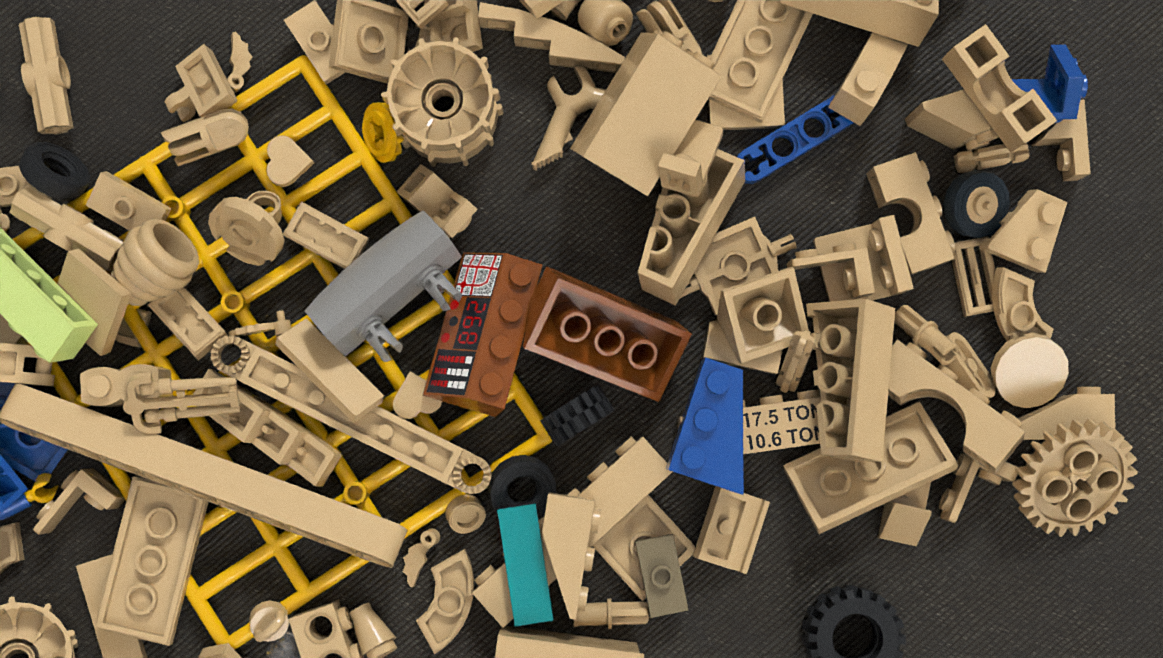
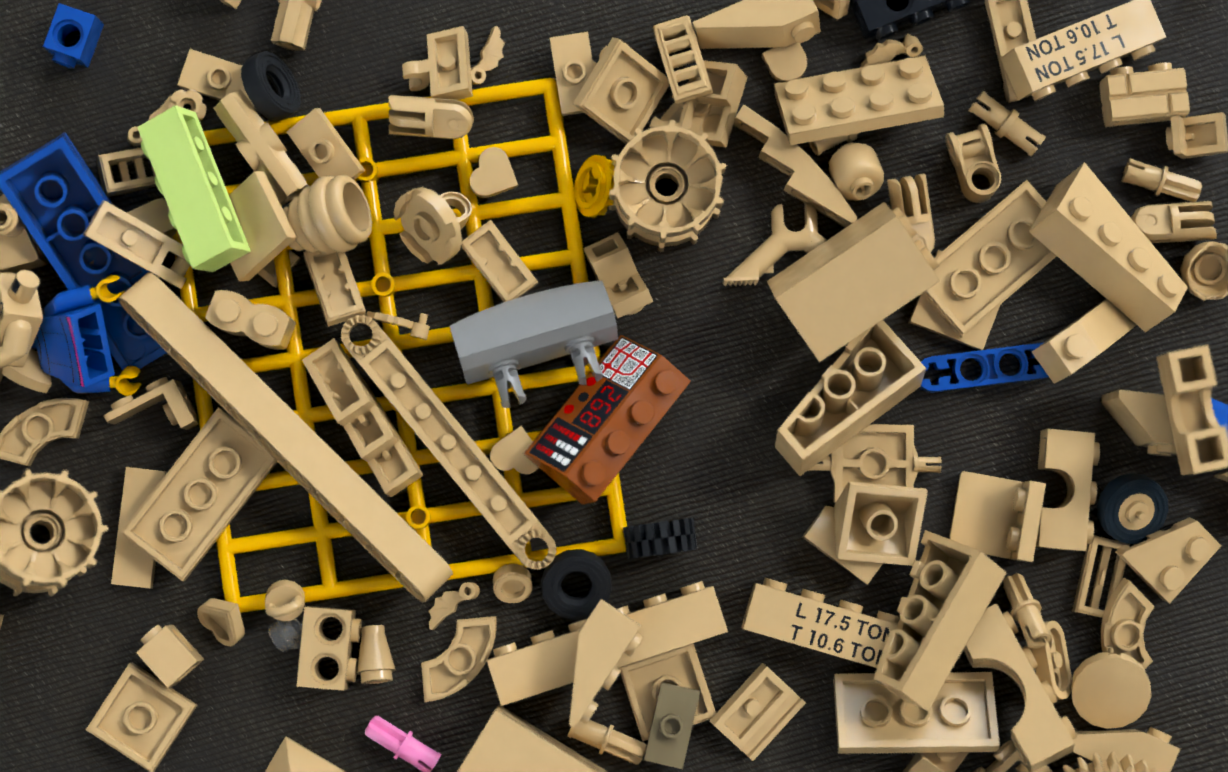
camera: 25 degrees right, 0 degrees up
(136, 404) = (255, 344): tan piece -> none
(329, 370) = (447, 391): tan tile -> none
(525, 564) = (548, 656): teal tile -> none
(603, 334) = (719, 473): dark orange slope -> none
(692, 160) = (875, 348): tan bracket -> none
(712, 429) = (781, 608): blue wedge -> none
(795, 361) = (890, 580): tan axle -> none
(856, 276) = (984, 525): tan bracket -> none
(989, 157) = (1165, 469): tan axle -> none

